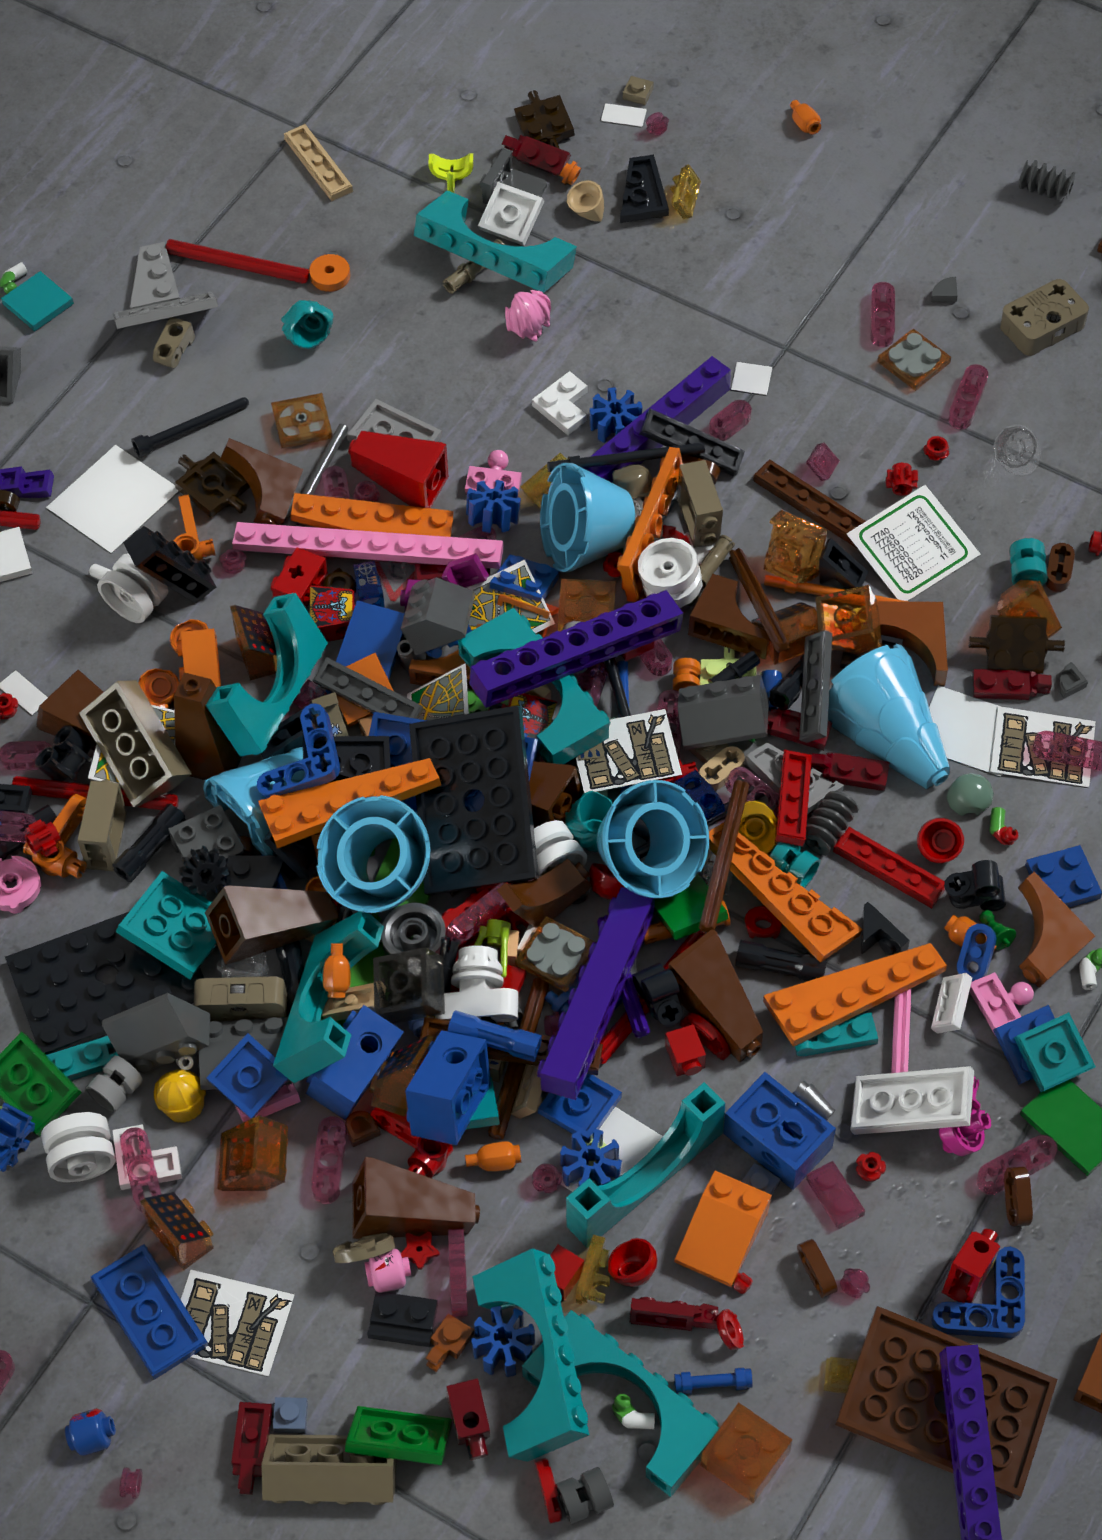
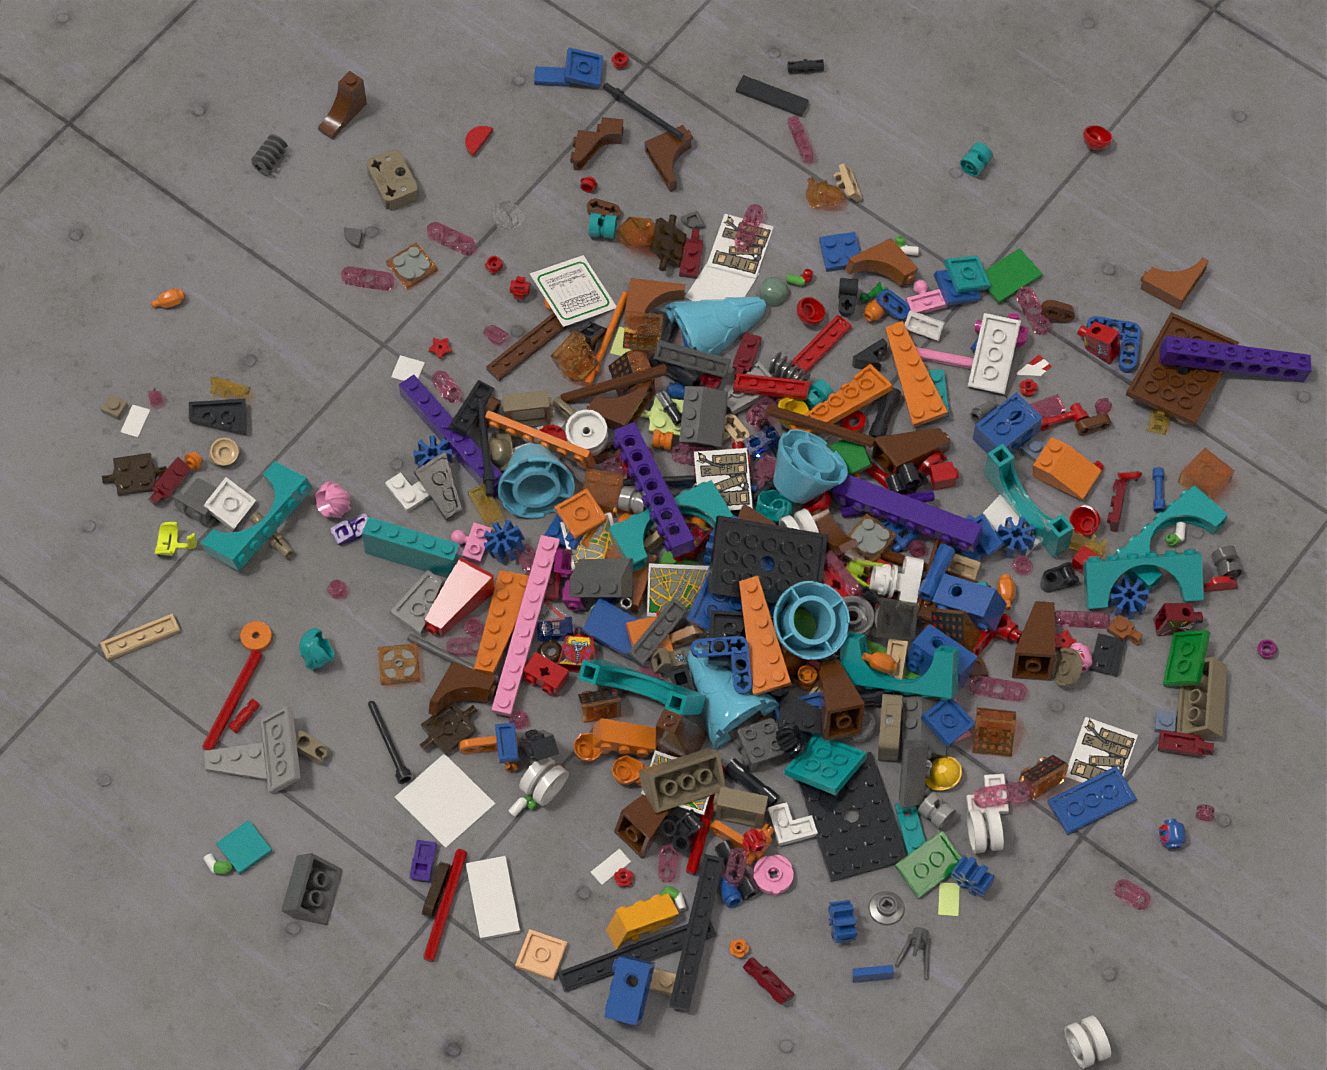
camera: 85 degrees left, 5 degrees up
(83, 891) = (790, 830): none -> white plate
(190, 537) = (506, 742): none -> blue tile
(216, 275) = (244, 715): none -> red axle
(405, 342) = (337, 584): none -> clear pink plate
(464, 398) = (410, 547): none -> teal brick
(495, 348) = (349, 531): none -> slope
(530, 1234) = (1061, 576): none -> black piece
(538, 578) = (580, 513): none -> orange tile
(567, 423) = (439, 485): none -> wing
(581, 1112) = (990, 538): none -> blue plate
(787, 411) = (437, 351): none -> red plate
(833, 1243) = (1076, 413): none -> red brick
(913, 1178) = (1036, 367): none -> white sticker

